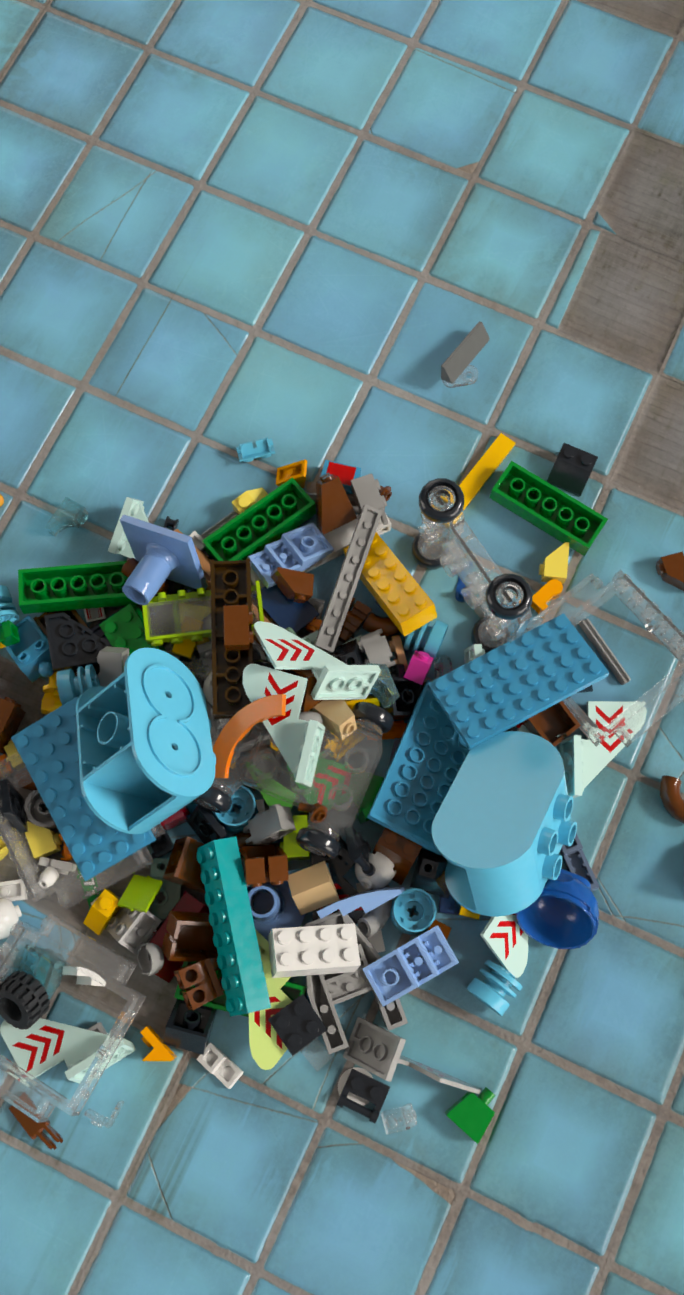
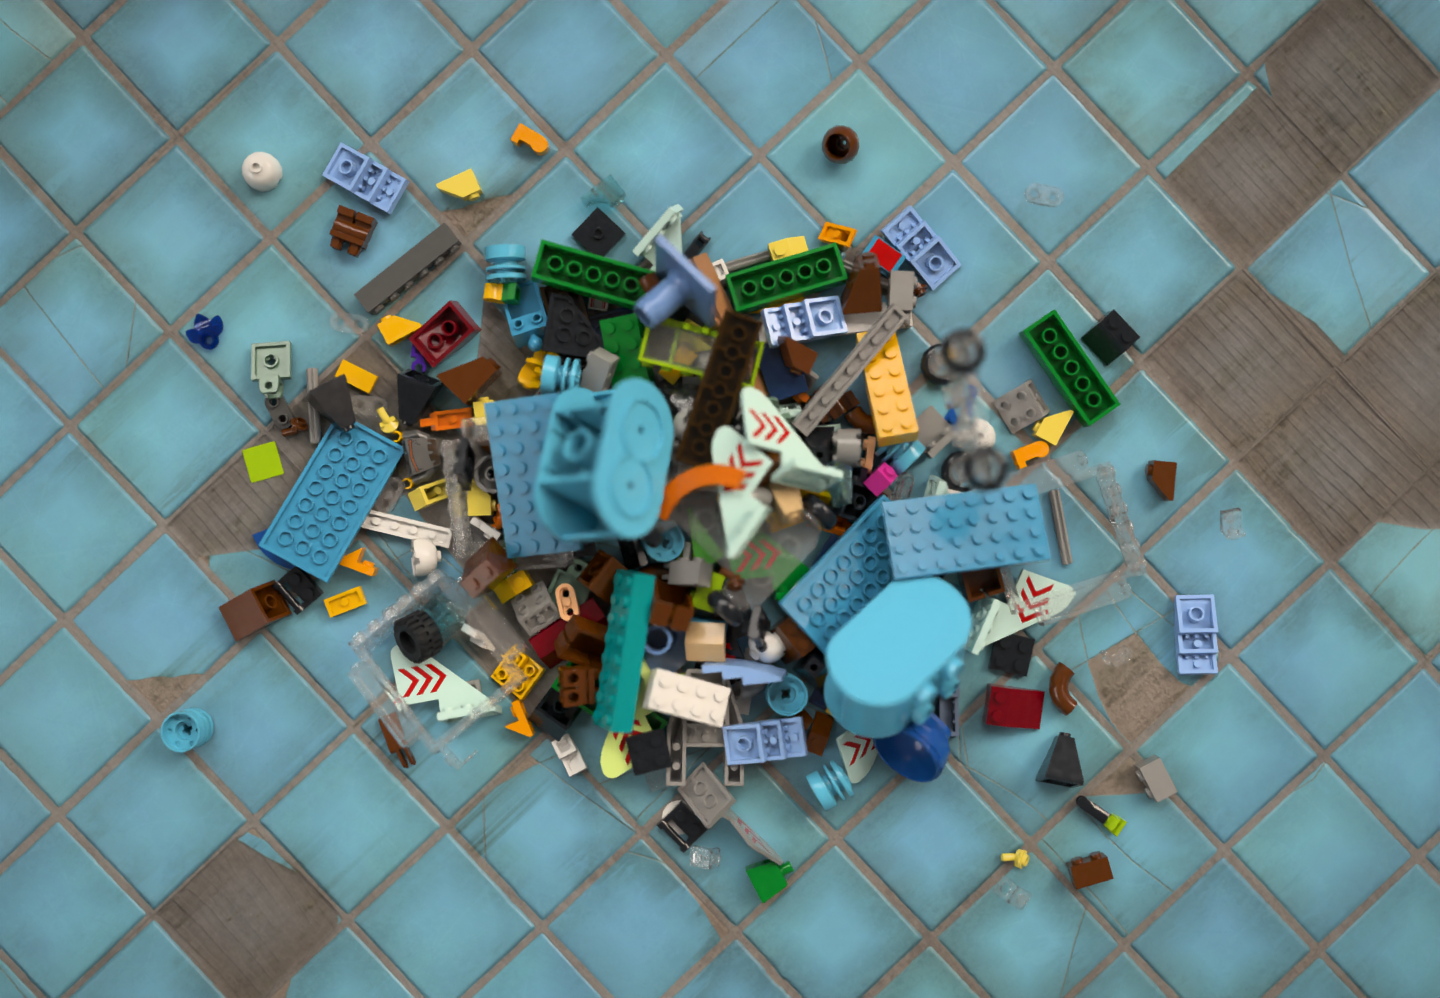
camera: 20 degrees right, 15 degrees up
(48, 877) = (475, 538): white hose -> none
(68, 900) = (486, 569): none -> reddish brown slope
(73, 551) = (598, 233): none -> black plate
(140, 893) = (552, 585): lime piece -> none
(149, 1009) = (529, 667): none -> yellow slope
(150, 958) = (541, 646): light grey hair -> none
(162, 906) = (567, 603): none -> light nougat plate
(236, 627) = (727, 387): reddish brown brick -> none
(248, 453) = (803, 195): medium azure hinge -> none
(258, 394) = (835, 149): none -> reddish brown helmet
(372, 457) = (922, 247): none -> light blue slope
(450, 610) = (932, 431): none -> light grey bracket
(462, 939) = (819, 733): none -> reddish brown slope
(464, 353) = (1058, 174): dark grey slope -> none
(485, 467) = (1019, 305): yellow tile -> none
(520, 557) = (1021, 406): none -> light grey bracket
(614, 787) = (1012, 654): none -> black plate
(638, 837) = (1013, 706): none -> dark red slope

